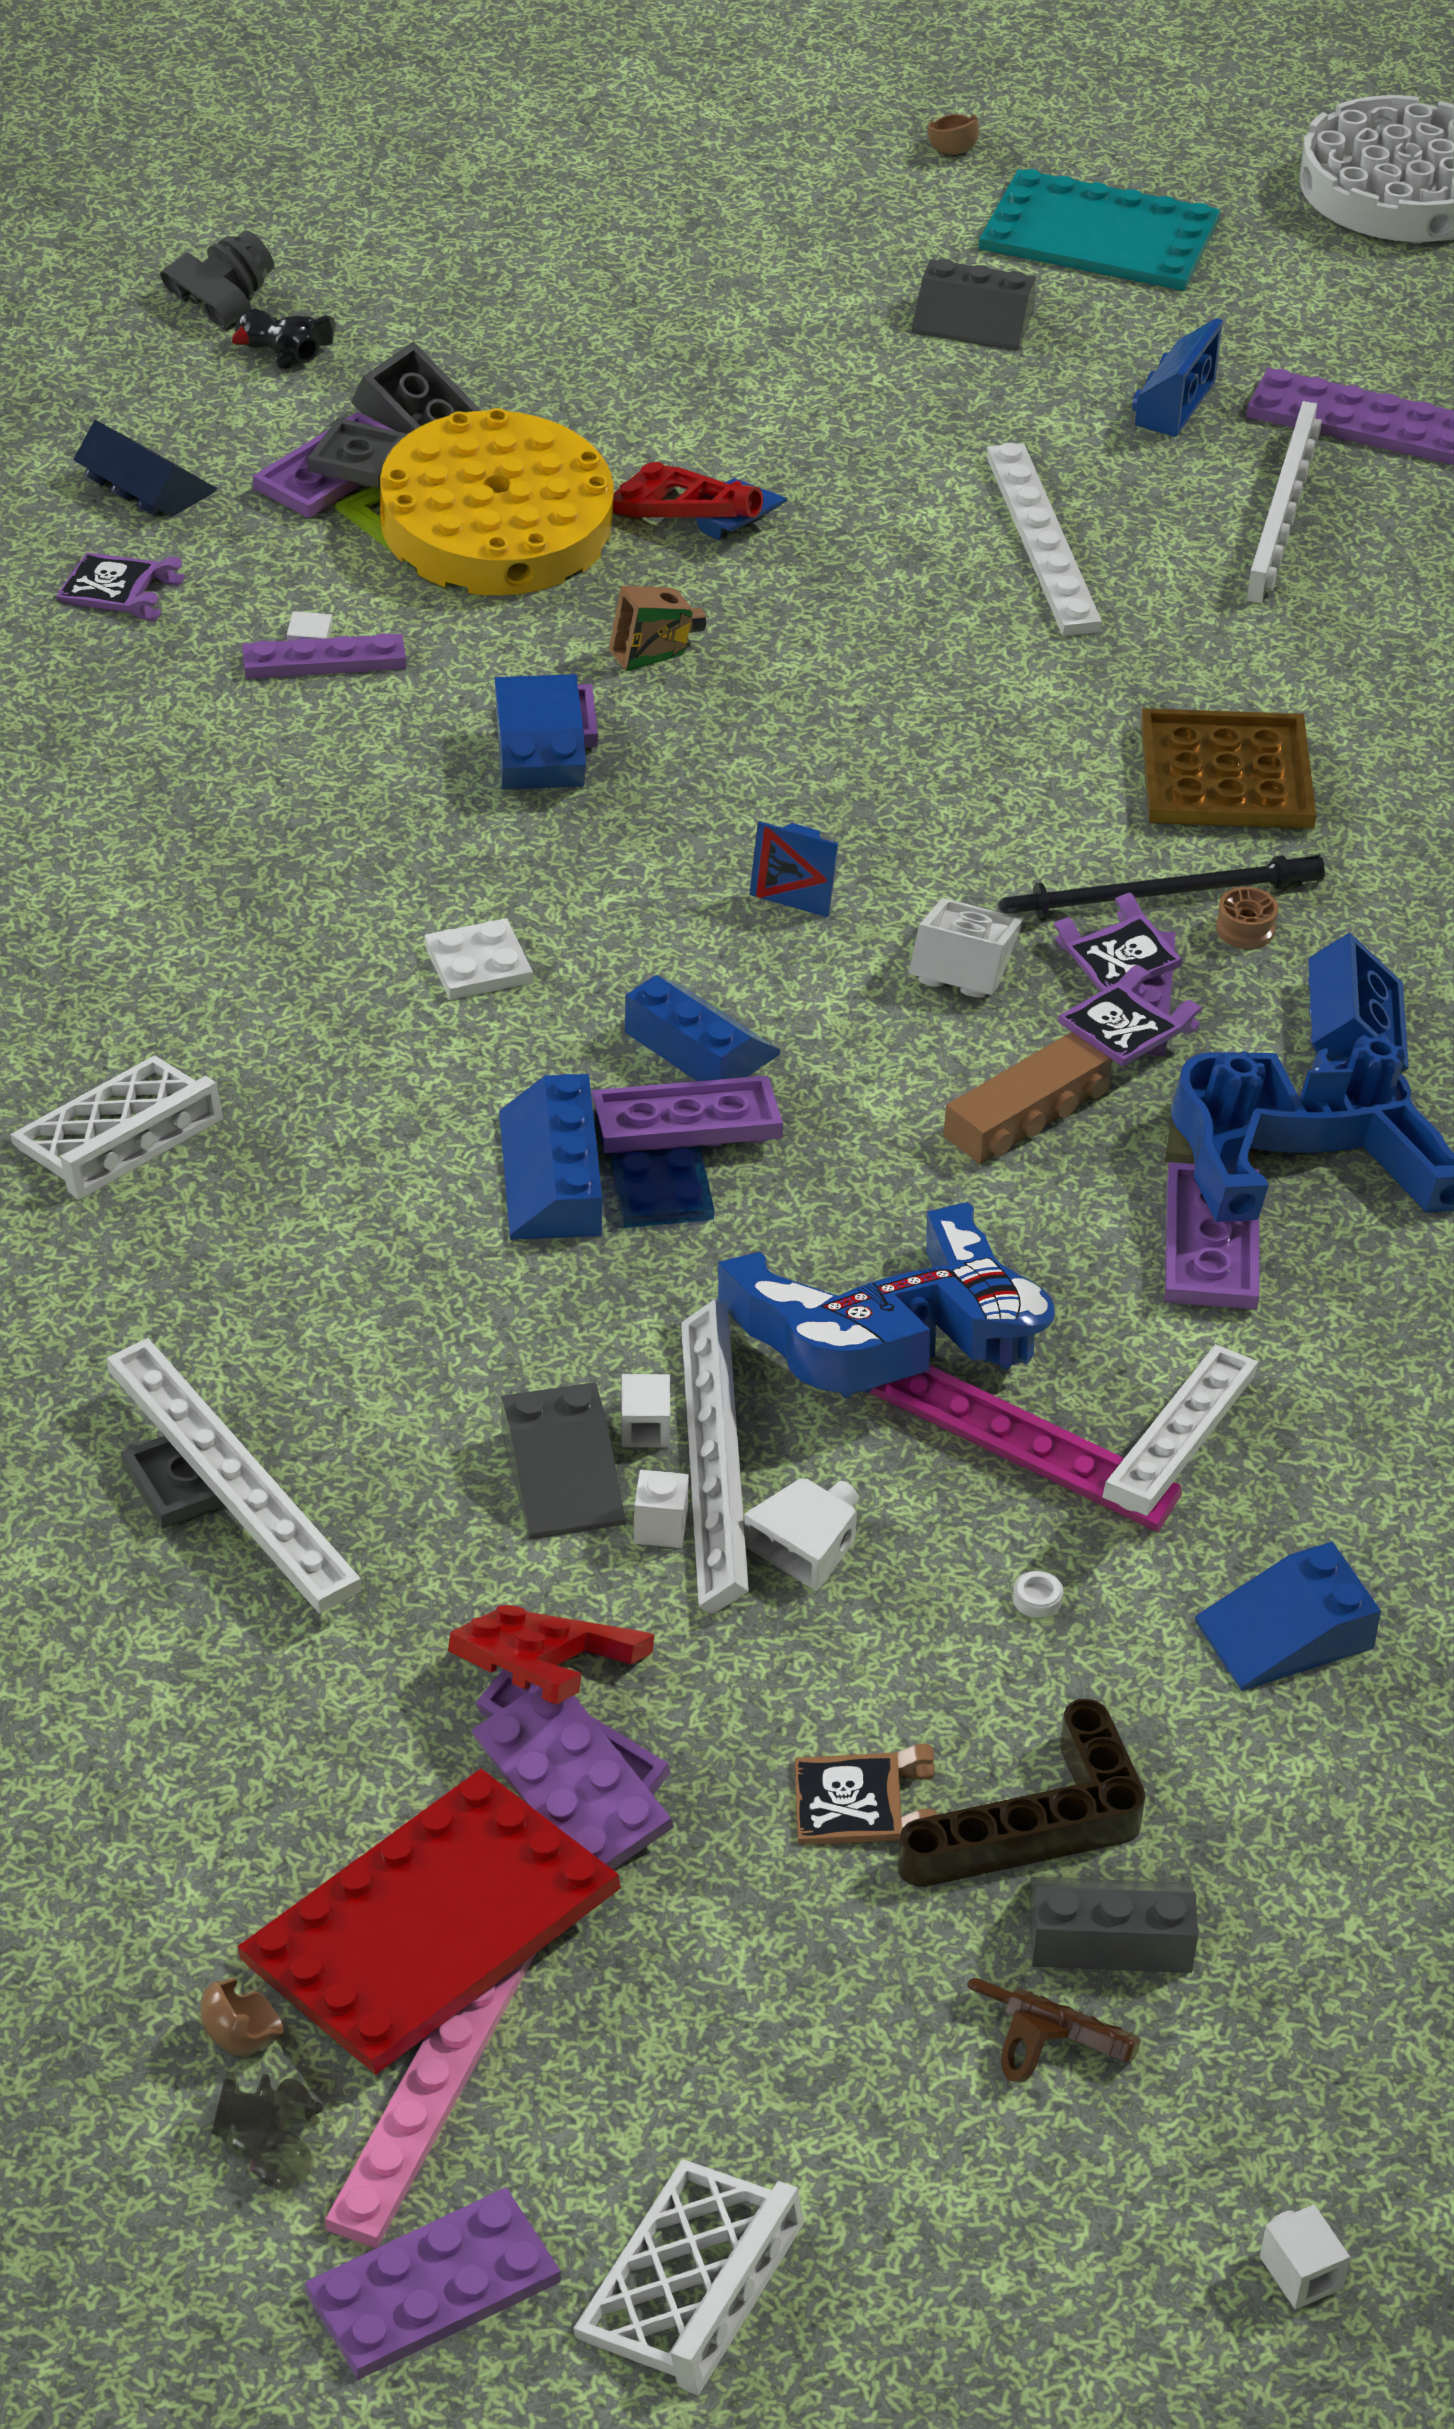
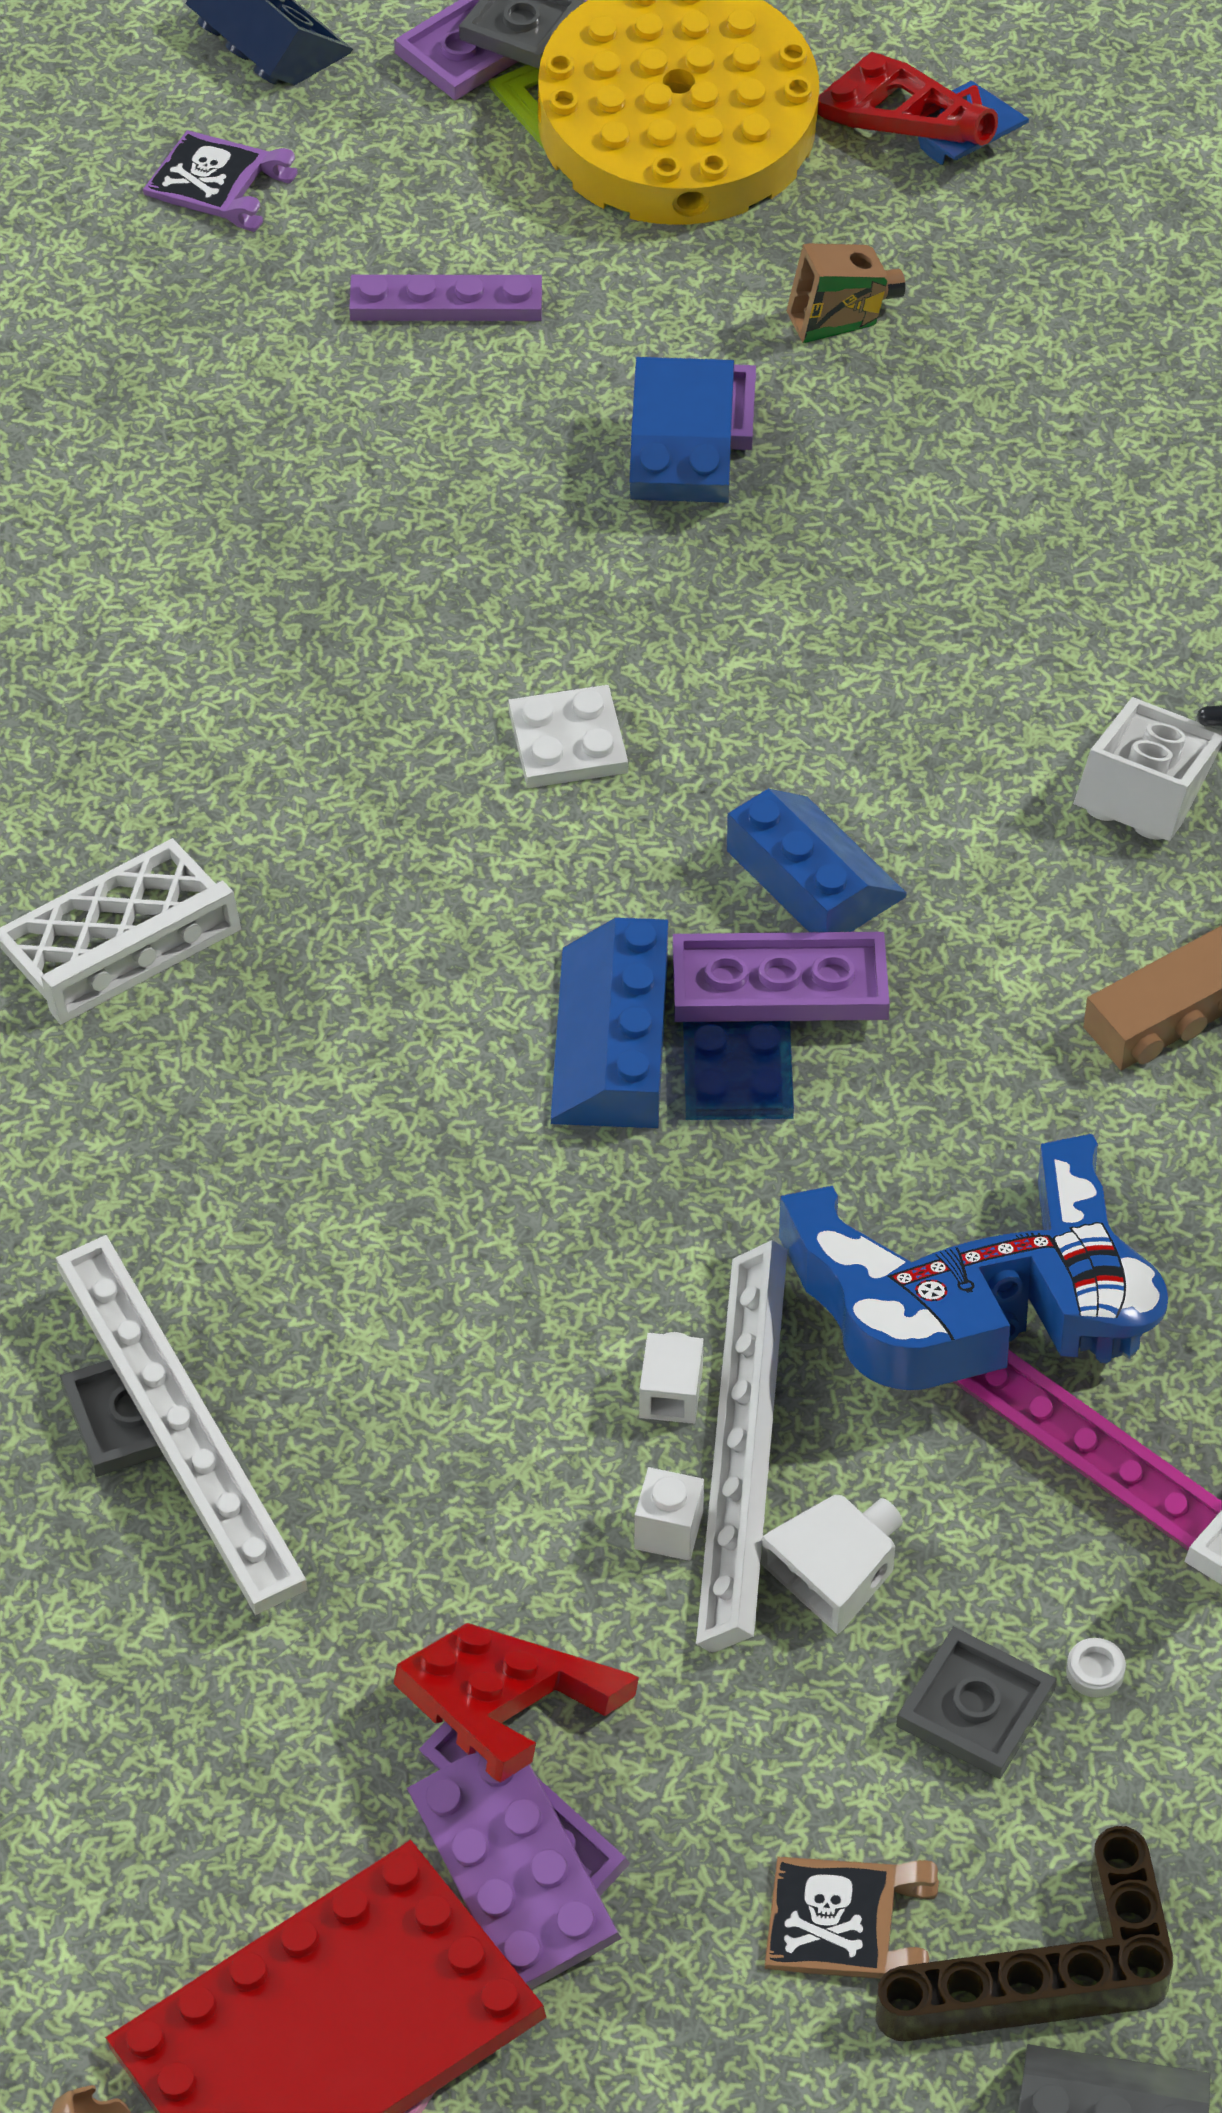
camera: 10 degrees right, 10 degrees up
(309, 626) = (433, 256): white tile -> none
(561, 1460) = (564, 1437): dark grey slope -> none
(794, 867) = (956, 648): blue piece -> none
(943, 1626) = (976, 1702): none -> dark grey plate

